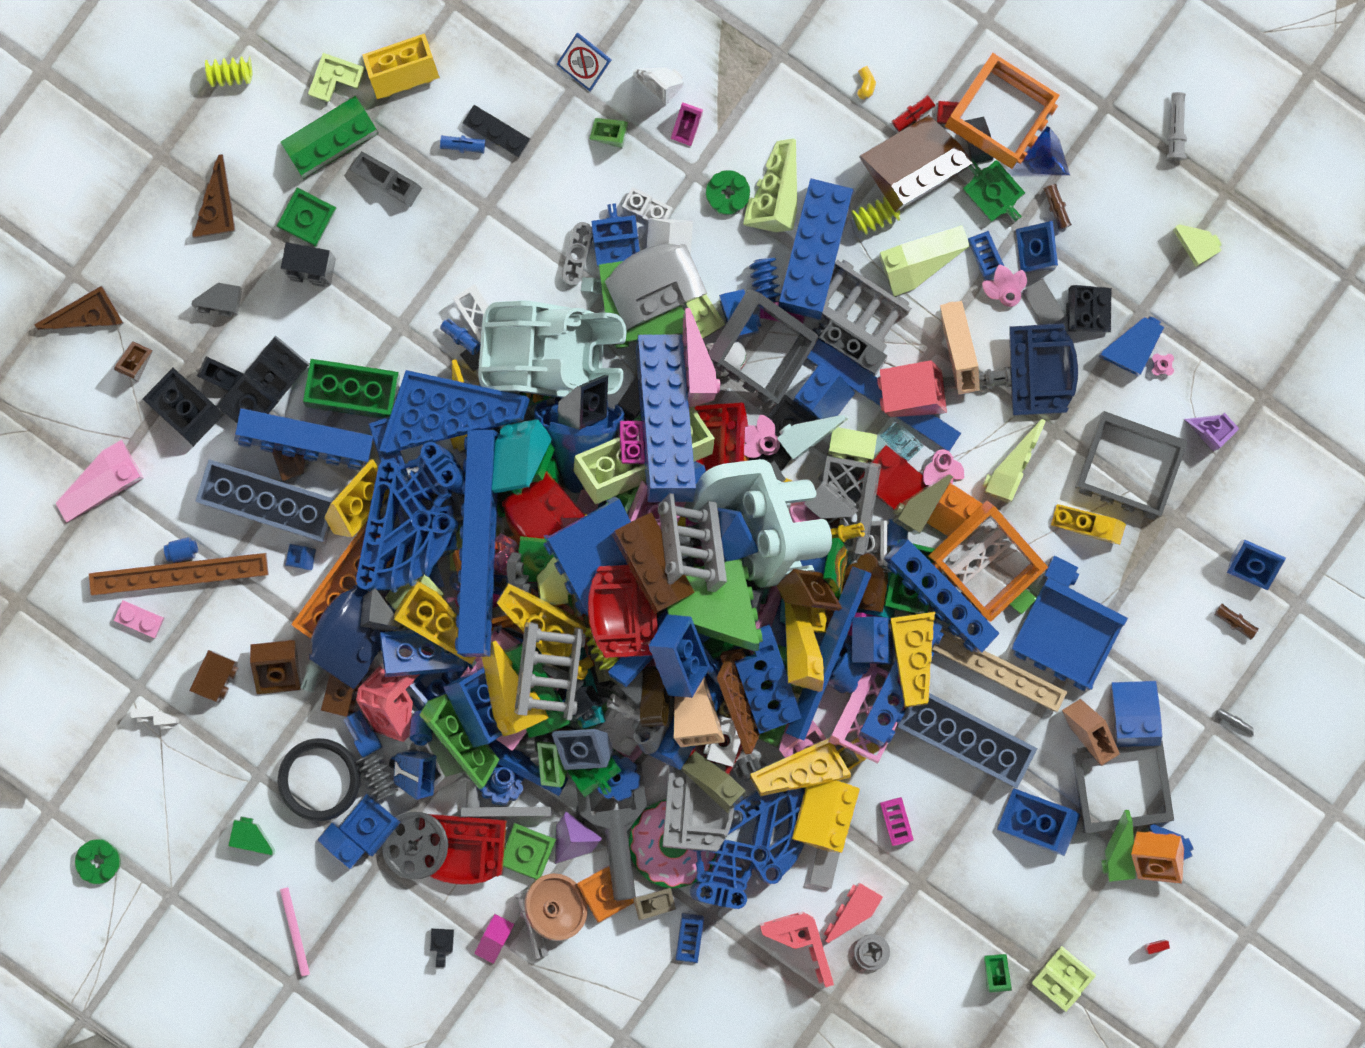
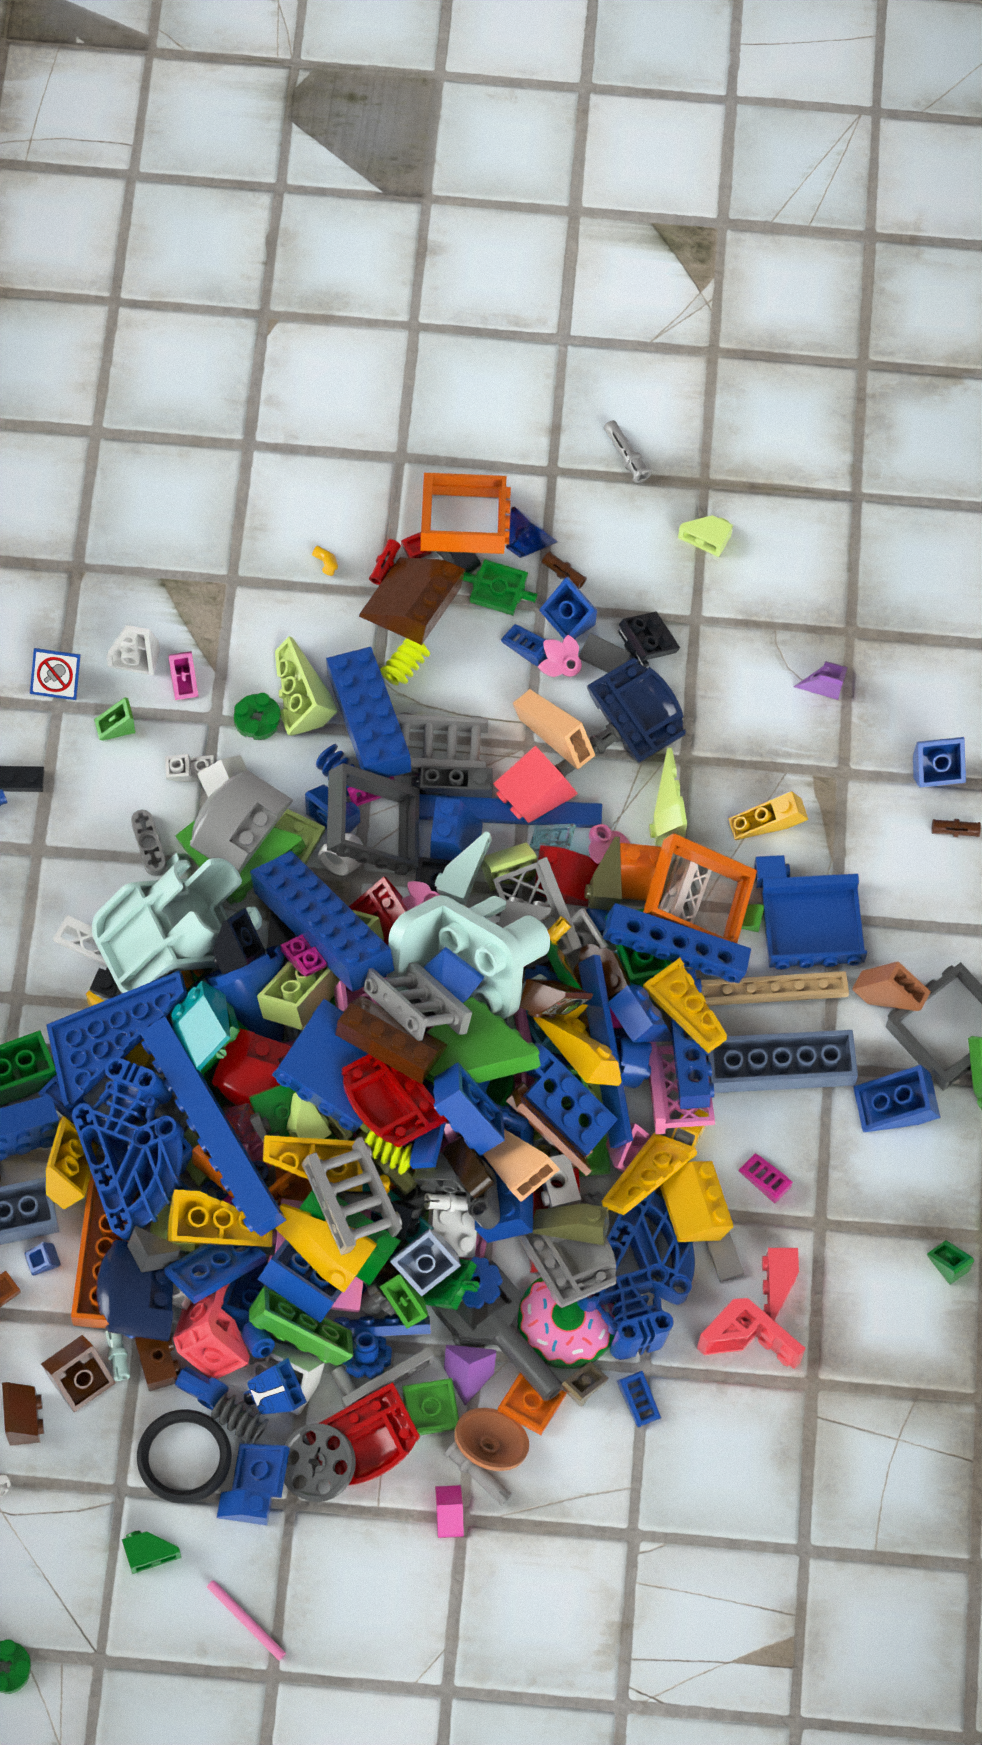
camera: 35 degrees left, 20 degrees down
(442, 942) = (400, 1545): black plate -> none
(460, 336) = (81, 970): blue pin -> none
(615, 237) = (174, 806): blue plate -> none
(701, 375) = (321, 858): bright pink wedge -> none
(882, 955) = (818, 1299): light grey gear -> none
(917, 260) = (467, 679): yellowish green wedge -> none
(1134, 346) = (709, 647): blue slope -> none
(1136, 714) = (924, 952): slope -> none
(1144, 431) = (769, 712): dark grey window -> none
(1158, 369) = (741, 655): bright pink plate -> none

